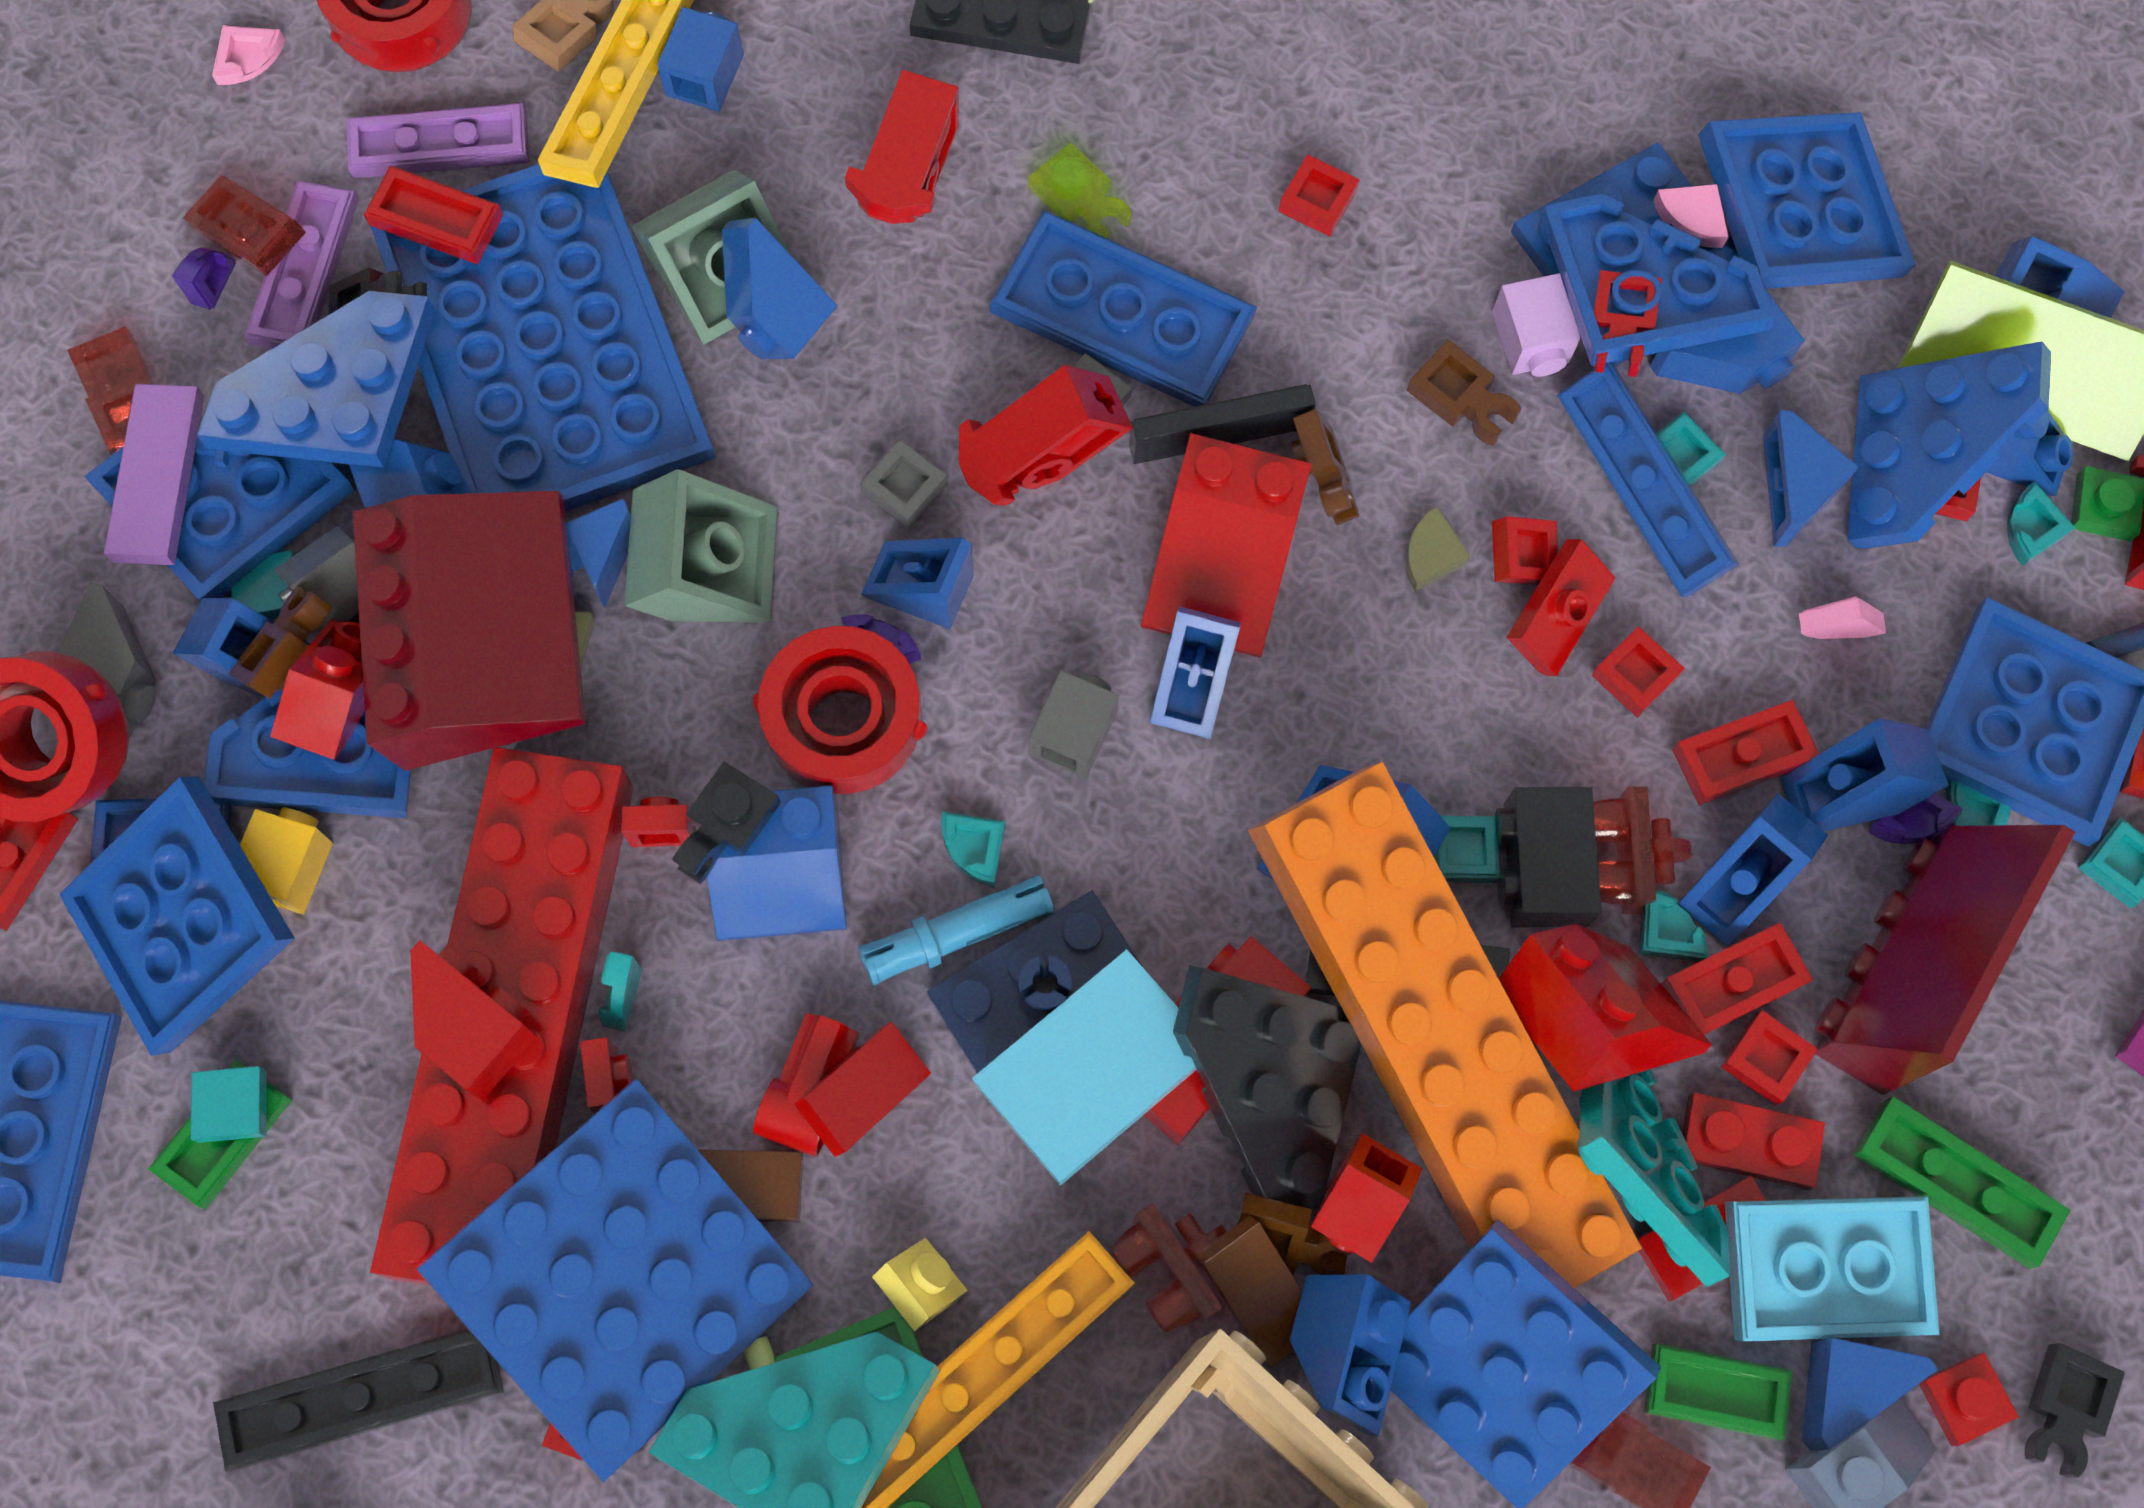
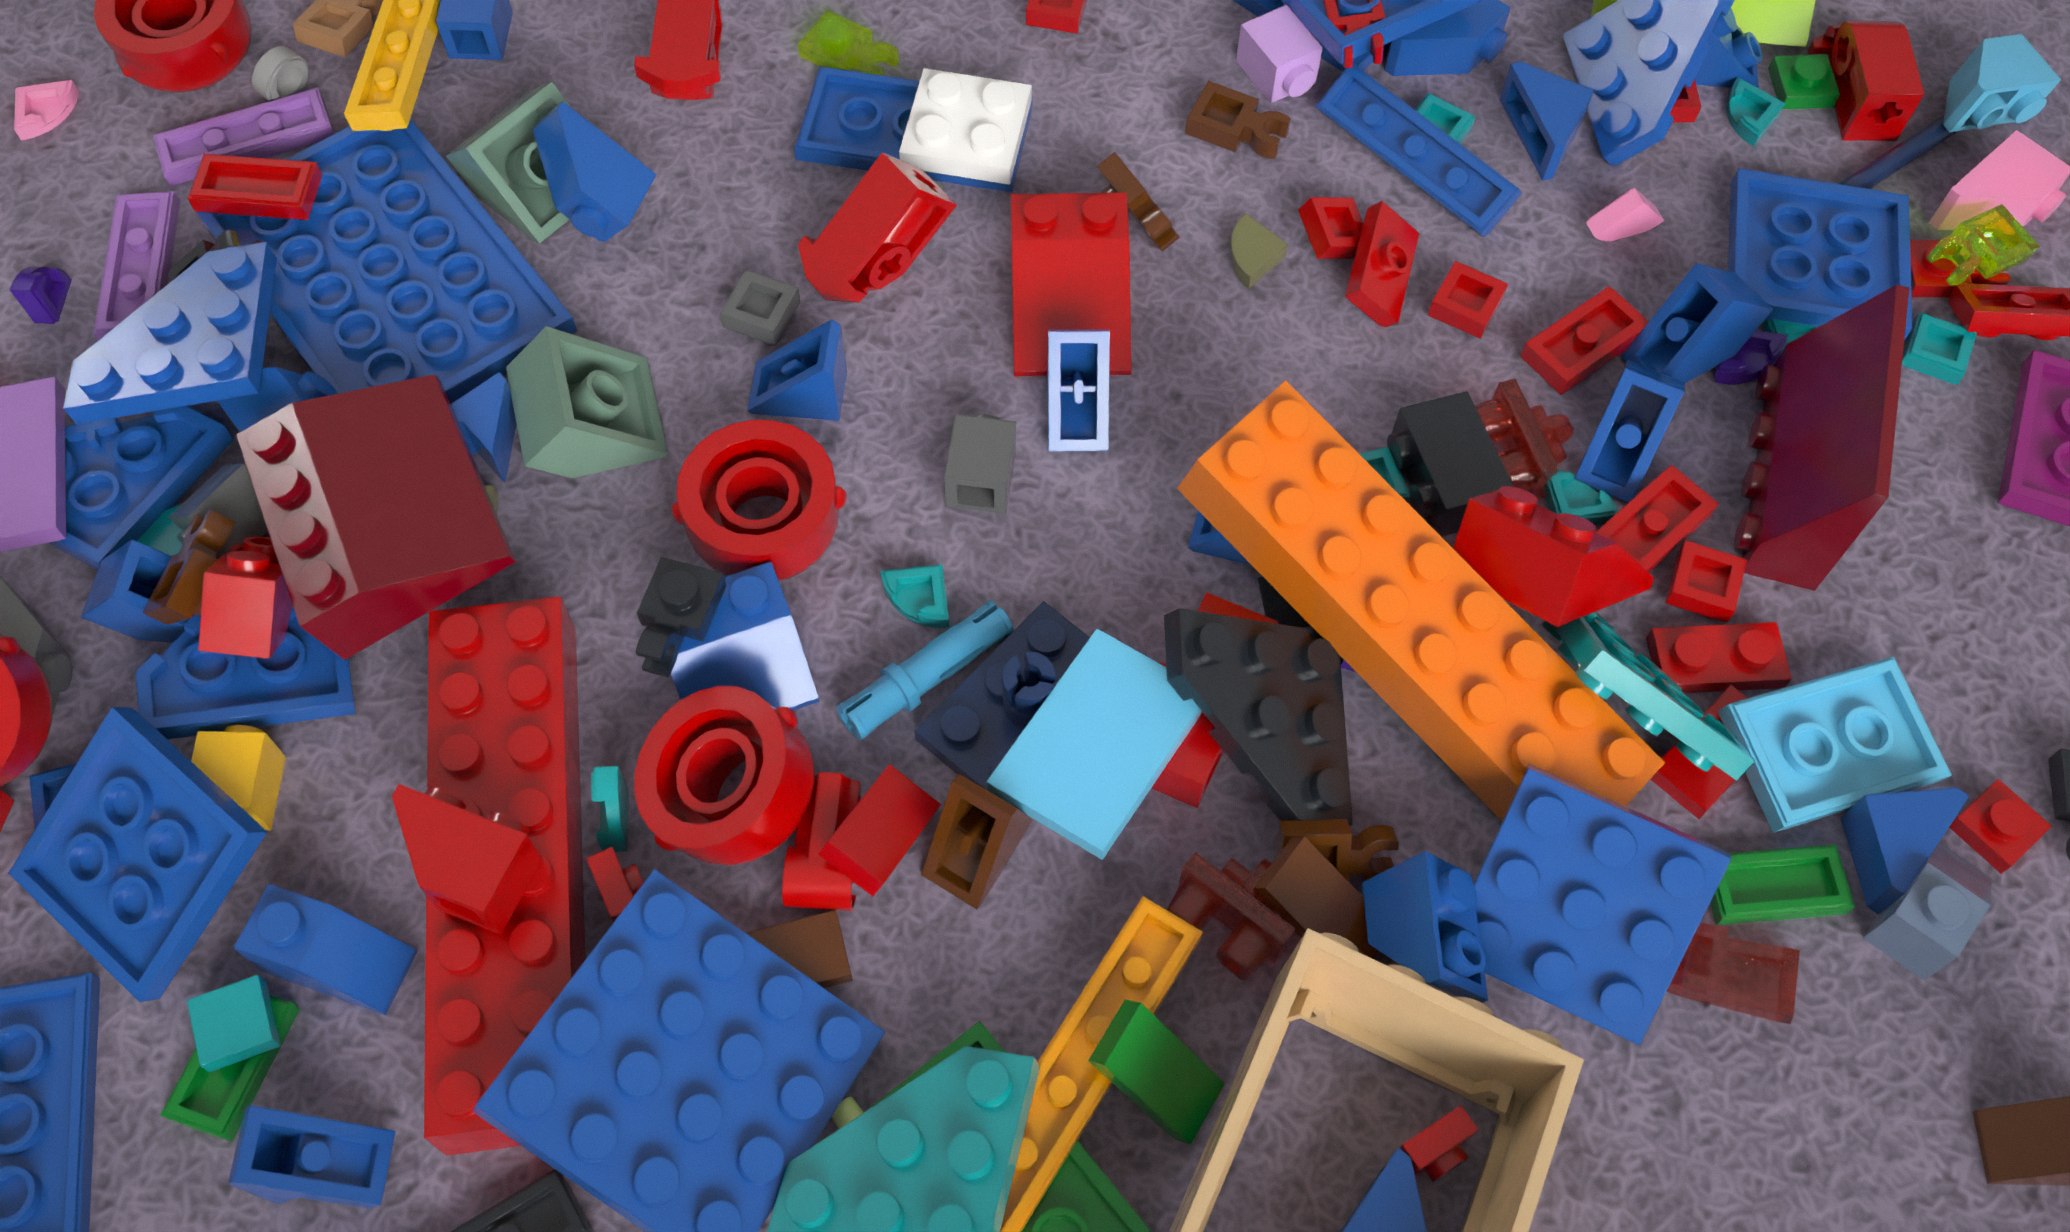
camera: 15 degrees left, 10 degrees down
(244, 225) = (72, 240): clear red plate -> none
(270, 1256) = (310, 1158): none -> blue slope
(325, 1057) = (324, 949): none -> blue slope
(488, 79) = (279, 73): none -> light grey tile
(656, 823) = (608, 648): red plate -> none
(694, 975) = (692, 756): none -> red piece
(919, 1283) = (991, 997): light yellow plate -> none
(948, 1124) = (973, 841): none -> reddish brown slope
(1049, 1404) = (1157, 1071): none -> green tile
(1174, 327) = (966, 126): none -> white plate
(1227, 421) = (989, 207): black tile -> none
(1366, 1198) = (1397, 784): red slope -> none
(1962, 1183) = (1918, 638): green plate -> none

